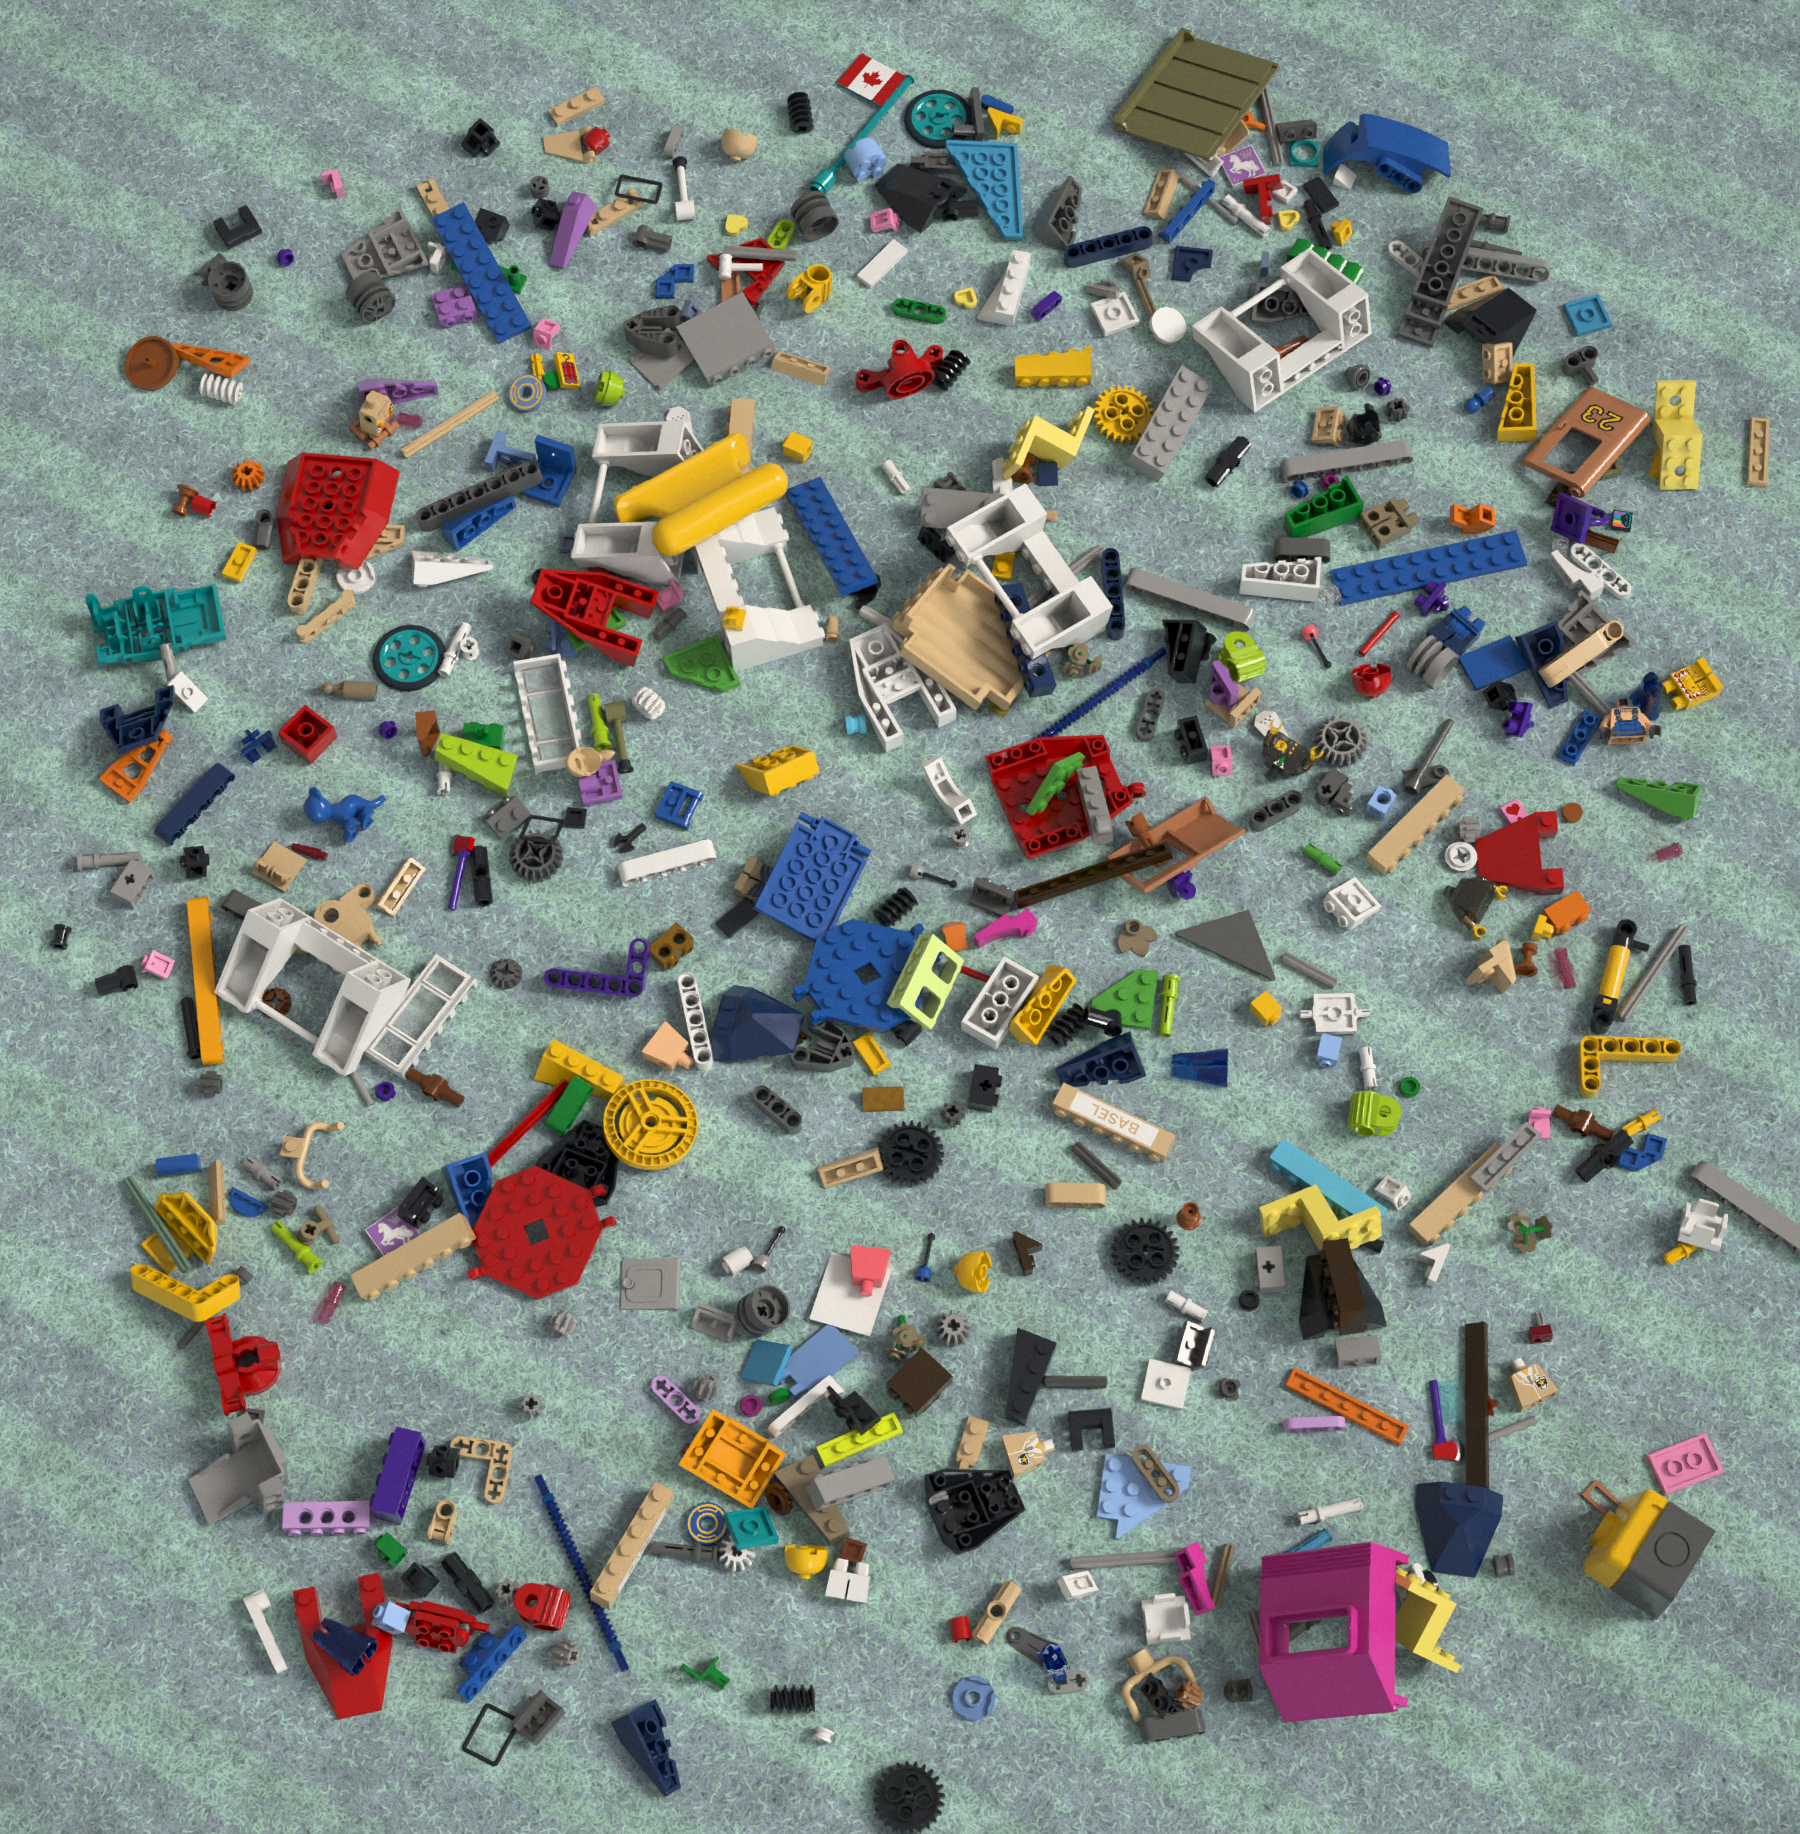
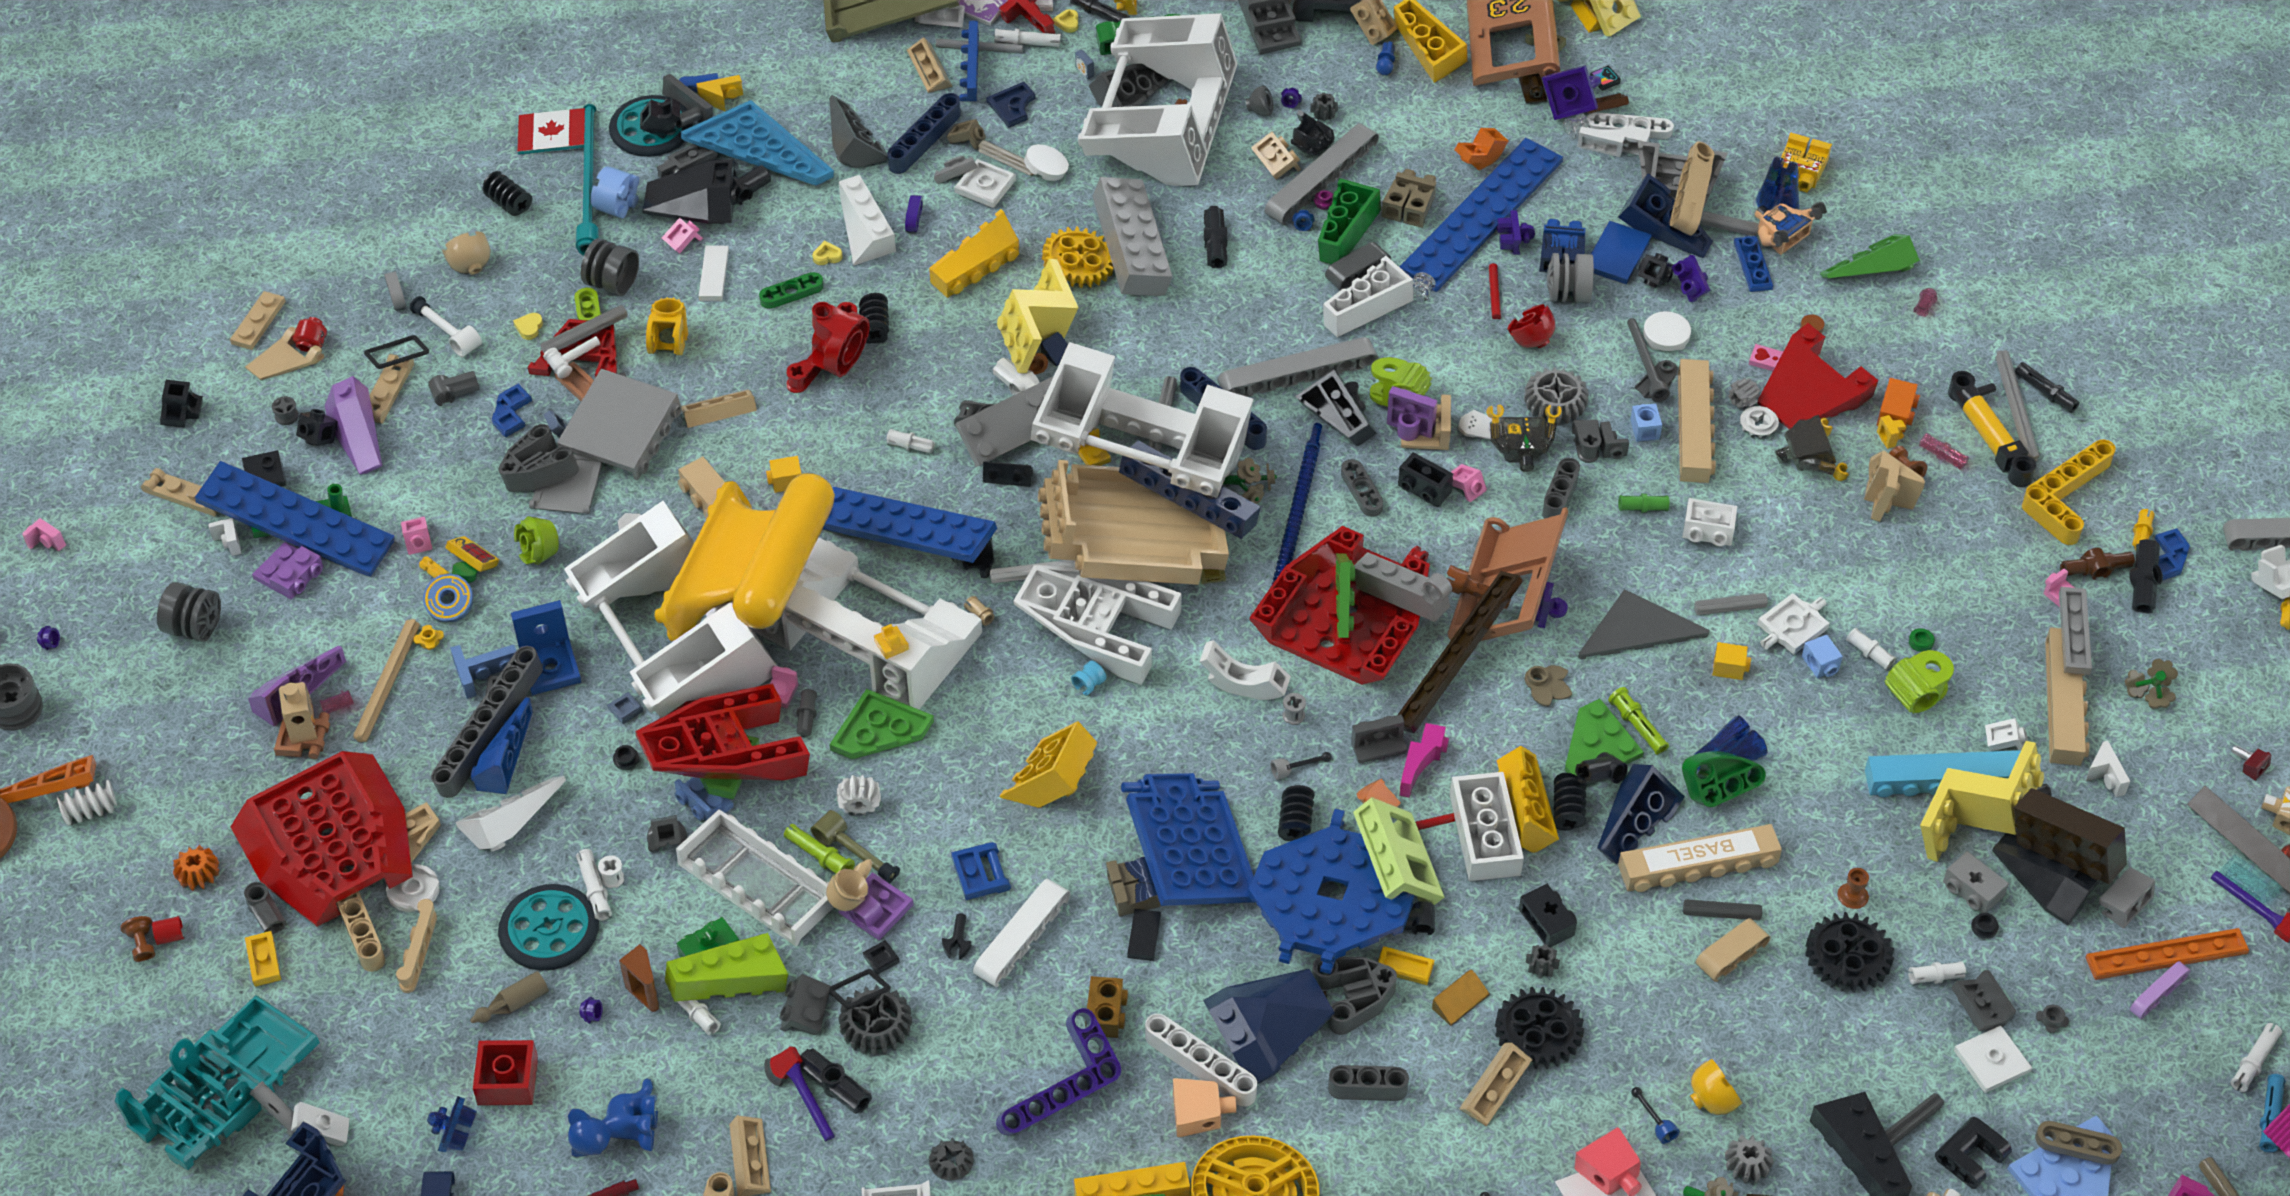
camera: 40 degrees left, 15 degrees down
(387, 249) = (163, 557): light grey wedge -> none
(501, 414) = (428, 642): none -> yellow plate
(941, 119) = (660, 117): none -> black brick
(1024, 1247) = (1736, 1033): dark brown slope -> none
(1177, 1073) = (1716, 769): none -> green beam
(1310, 633) = (1436, 329): hinge -> none
(1465, 746) = (1667, 331): none -> white tile

